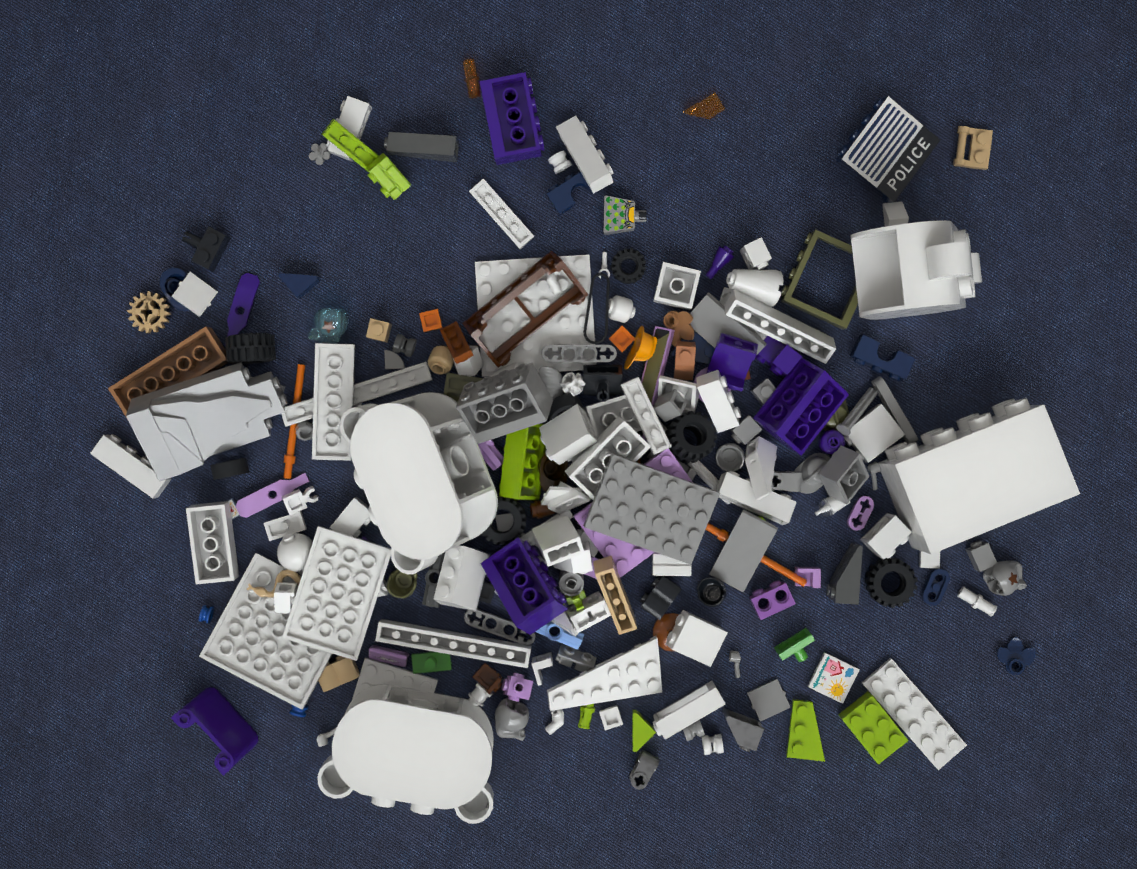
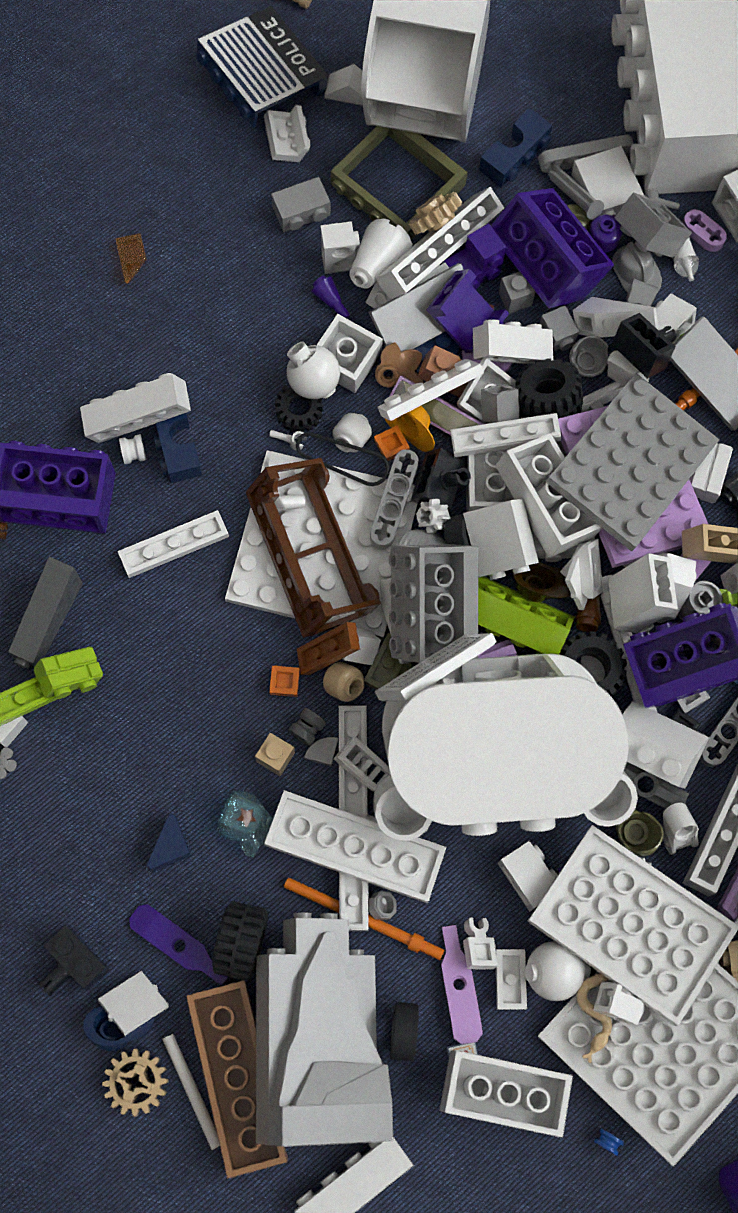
camera: 75 degrees left, 15 degrees down
(158, 346) = (192, 1091): none -> white bar
(393, 375) = (363, 750): none -> white slope
(413, 607) = (679, 828): none -> white piece
(450, 418) = (435, 667): none -> white tile
(620, 215) = (229, 396): torso -> none
(648, 268) = (312, 371): none -> white brick
(659, 354) = (424, 392): none -> white plate
(740, 494) = (644, 344): none -> black brick
(783, 216) = (301, 204): none -> light grey brick
(798, 316) = (435, 213): none -> tan gear
(838, 187) = (287, 134): none -> white bracket

